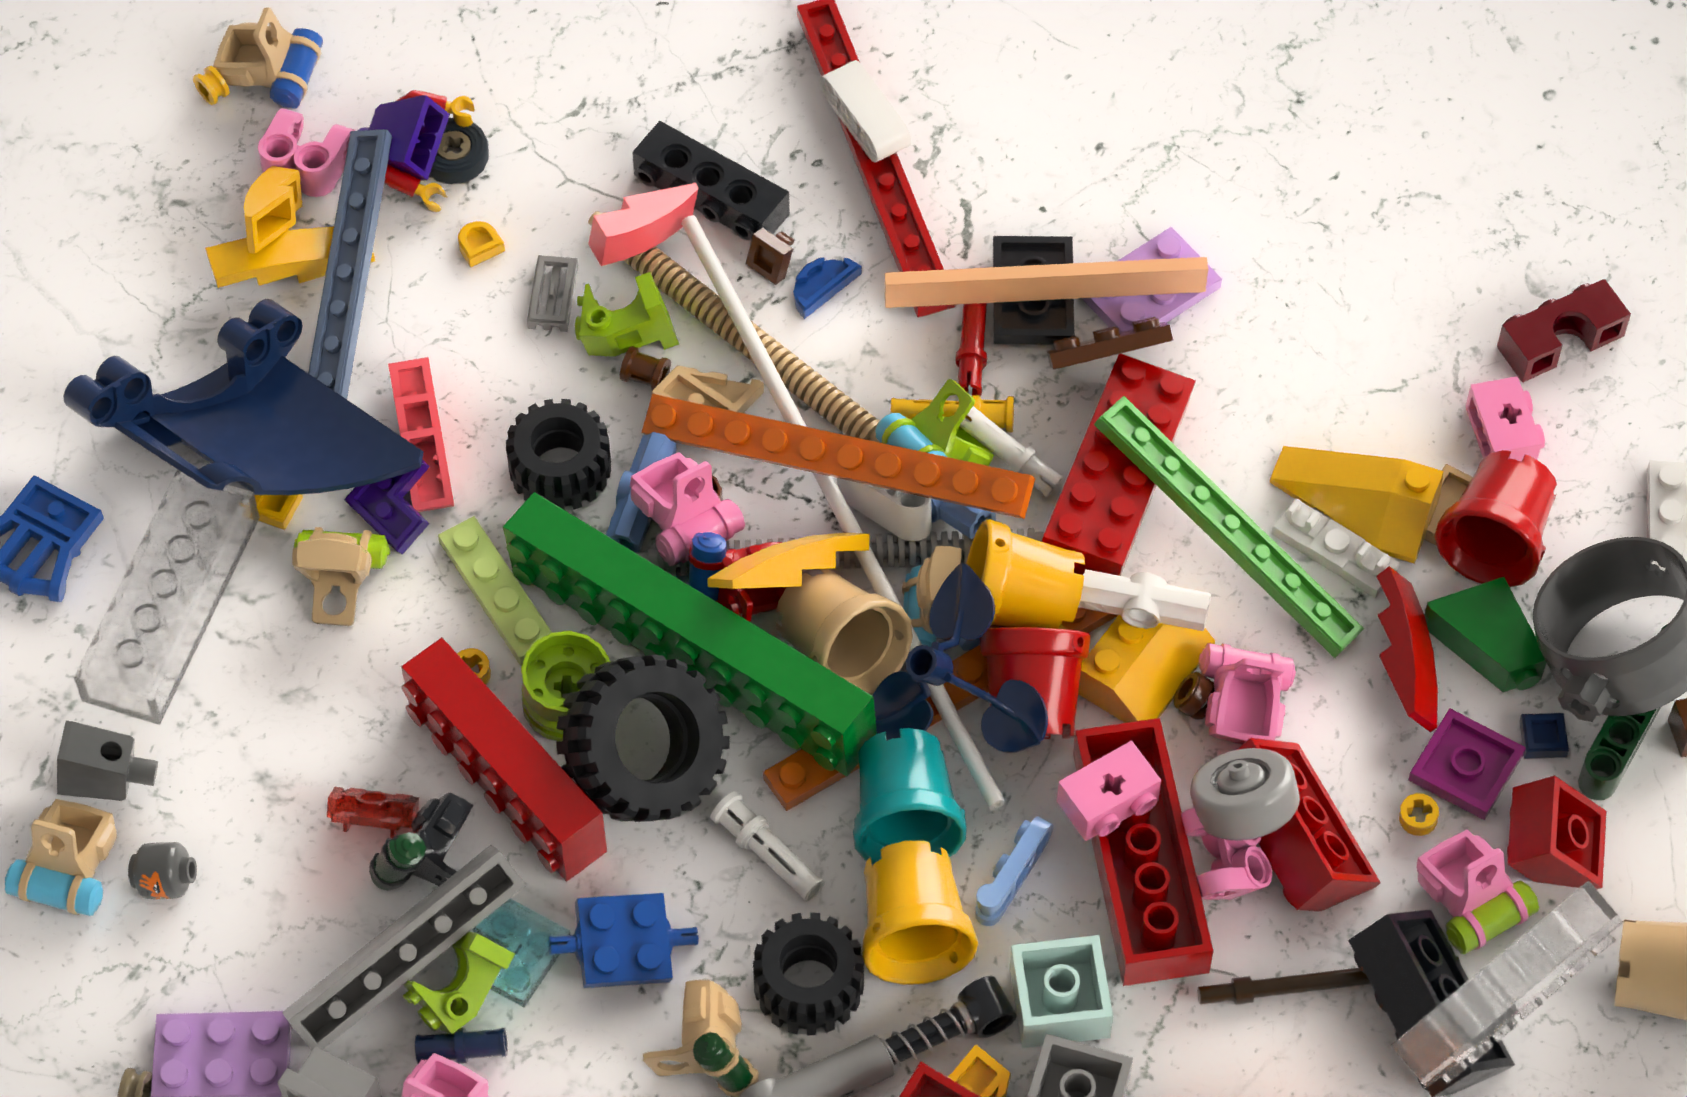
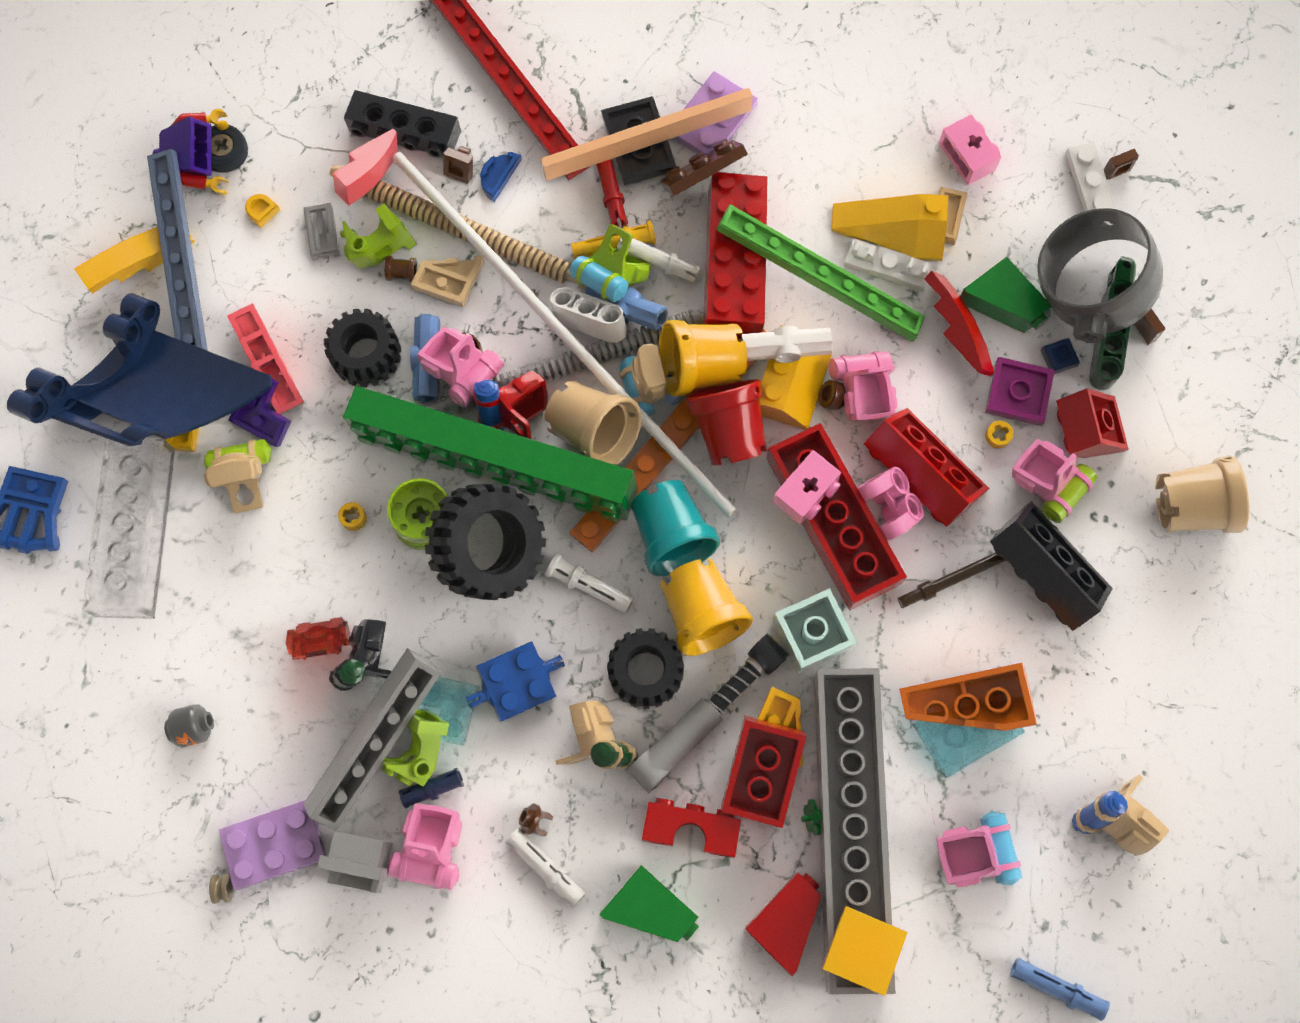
camera: 15 degrees left, 15 degrees up
(63, 858) = (118, 737): tan piece -> none
(99, 763) = (109, 666): dark grey torso -> none
(211, 85) = (41, 147): yellow bush -> none
(269, 58) = (75, 116): tan piece -> none
(271, 206) = (109, 226): yellow slope -> none
(317, 162) = (127, 186): bright pink piece -> none
(494, 586) = (351, 454): yellowish green plate -> none
(503, 760) = (395, 578): red brick -> none
(783, 562) = (540, 388): yellow slope -> none
(840, 456) = (553, 298): orange plate -> none
(865, 111) = (490, 45): white beam -> none
(966, 611) = (672, 391): dark blue plant -> none
(1012, 871) = (754, 552): light blue plate -> none
(1245, 794) = (898, 464): light grey wheel -> none
(1499, 521) = (992, 218): red piece -> none
(1509, 987) = (1108, 549): clear brick -> none
(1589, 313) = (999, 57): dark red arch -> none

